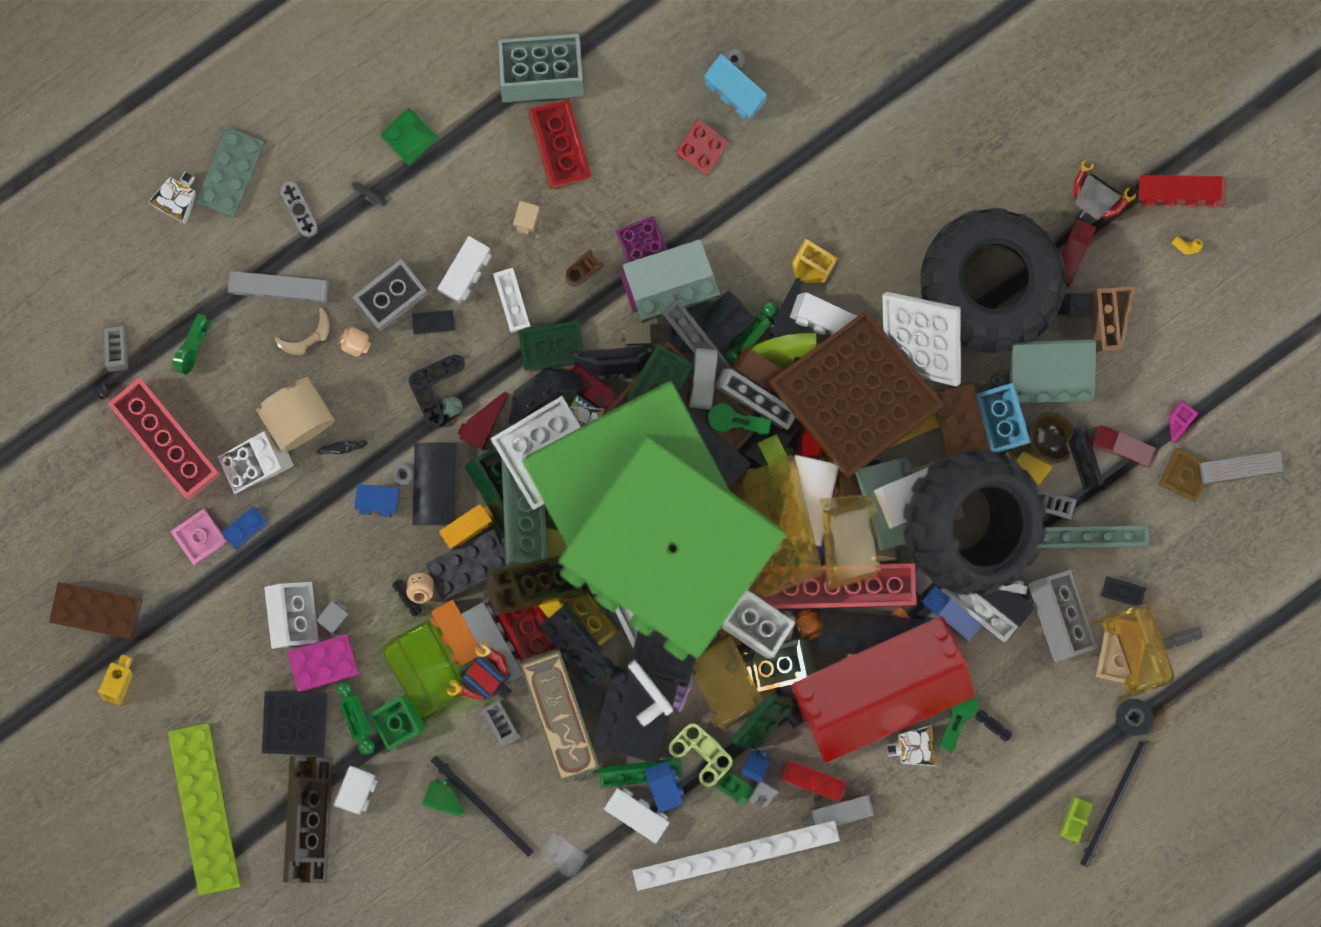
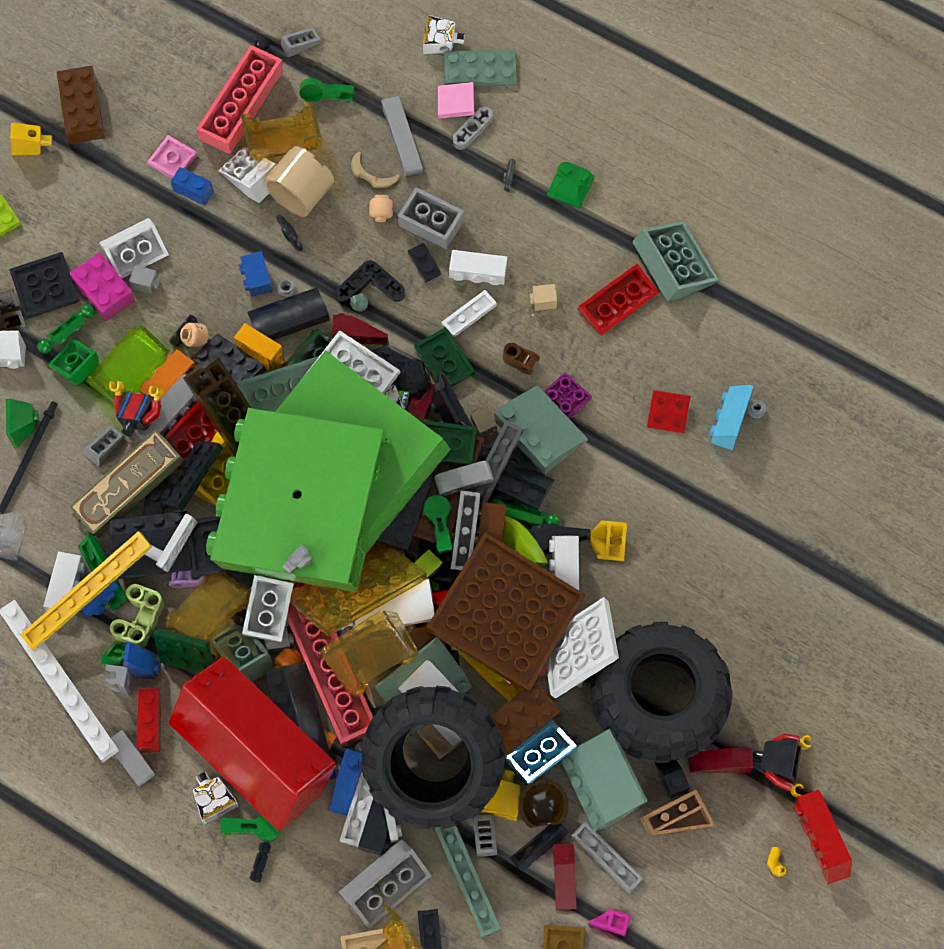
camera: 70 degrees right, 15 degrees down
(230, 410) = (280, 135): none -> clear yellow windscreen
(260, 213) = (456, 100): none -> bright pink tile
(666, 793) = (86, 590): none -> yellow plate
(742, 571) = (299, 558): none -> light grey piece
(1119, 399) = (607, 857): none -> light grey tile

